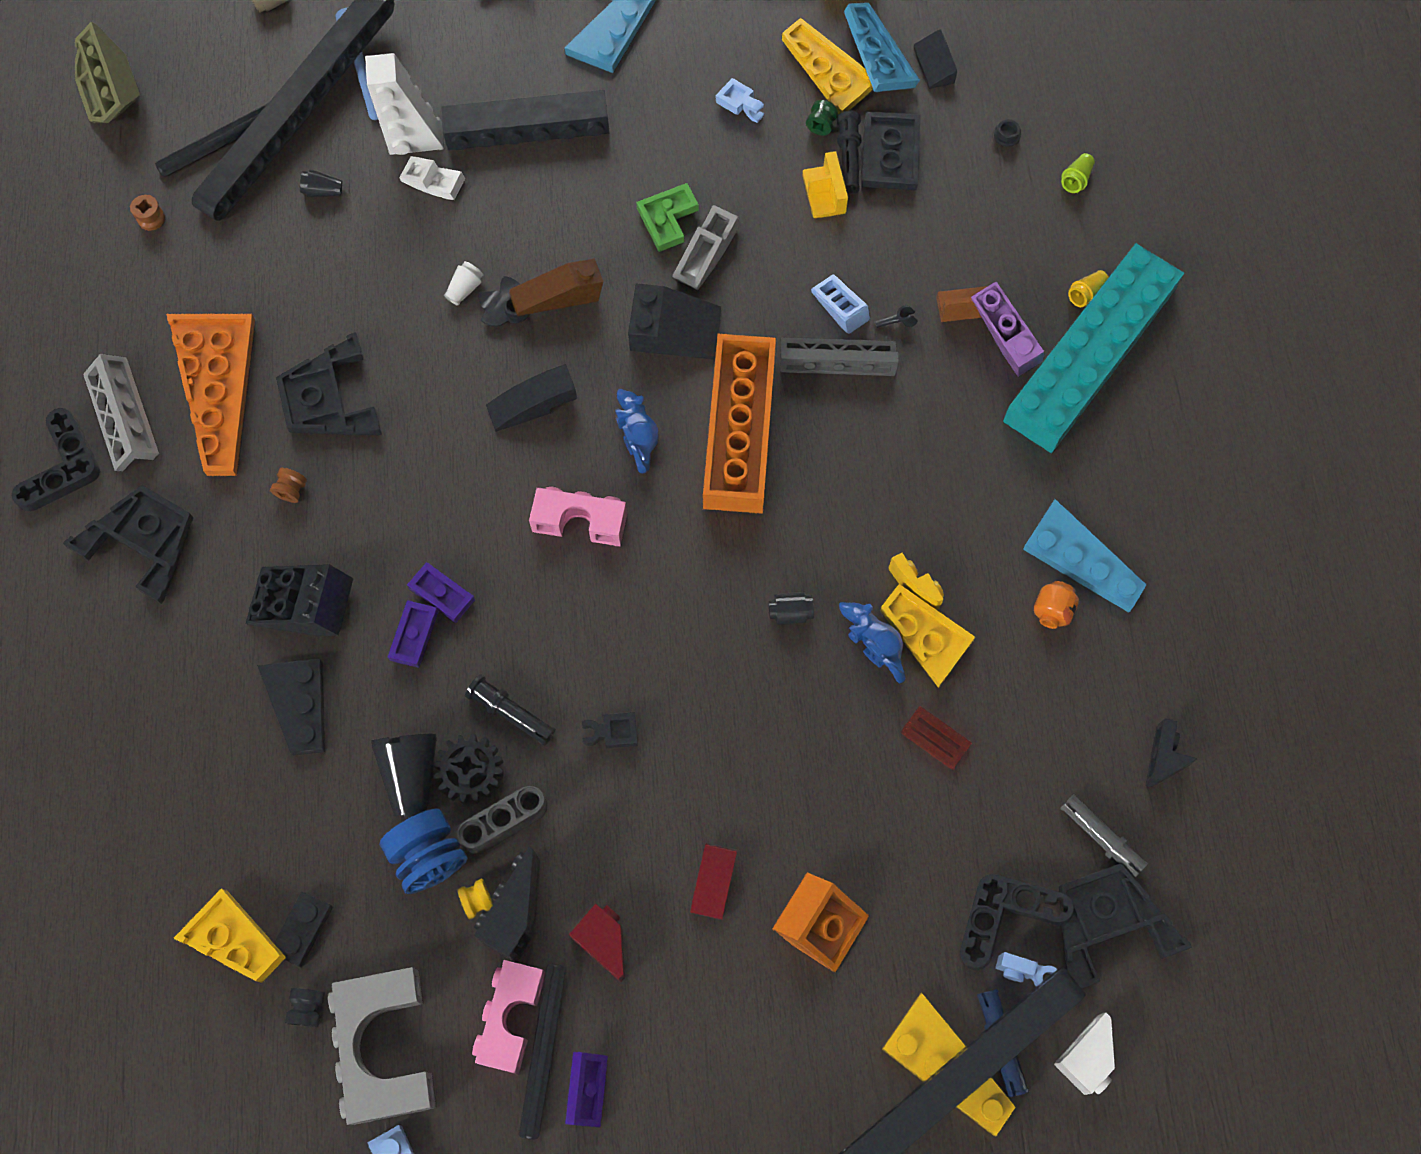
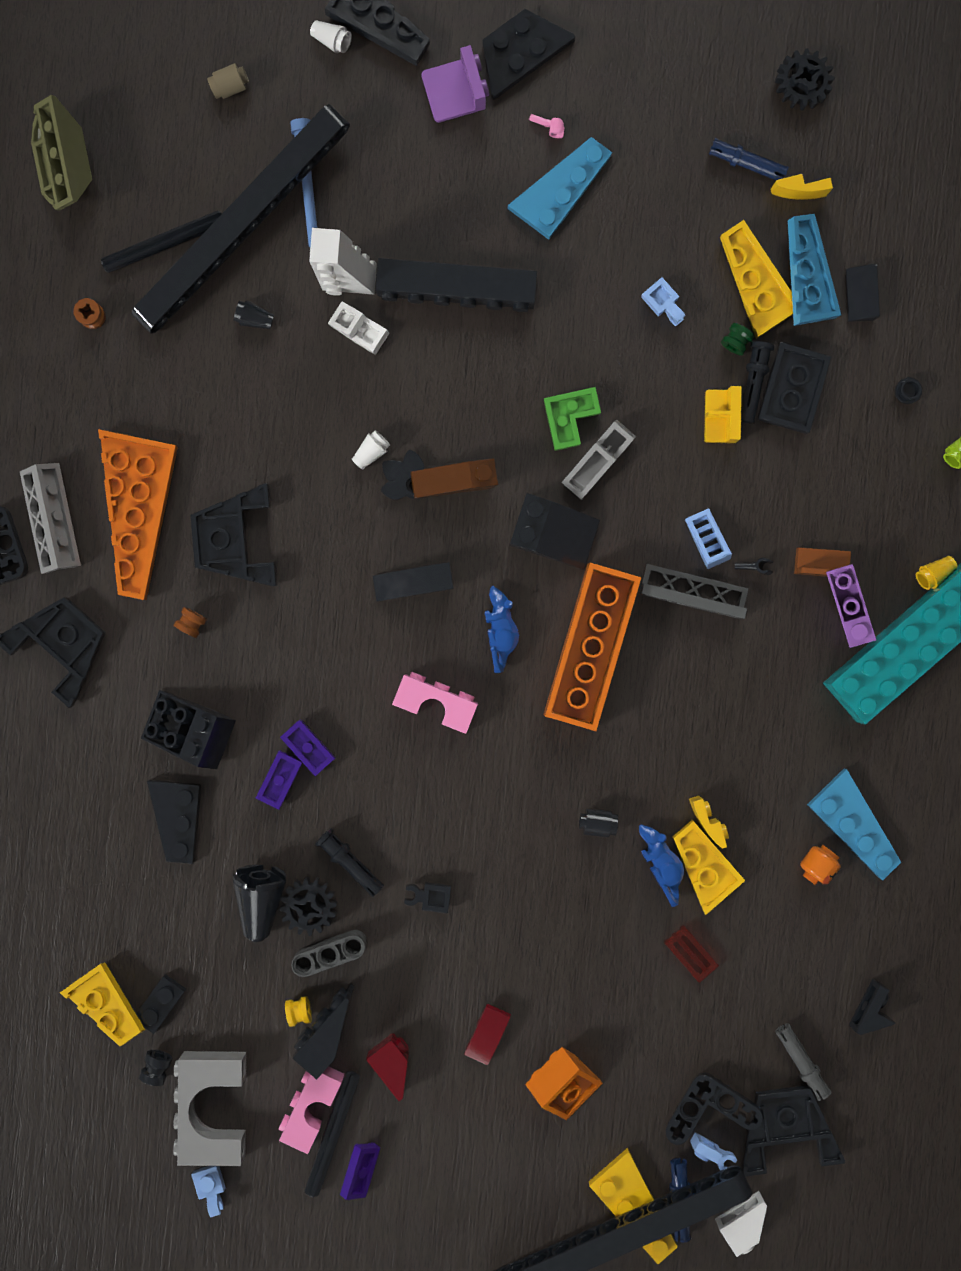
camera: 10 degrees right, 20 degrees up
(423, 850) = (264, 976): blue wheel -> none

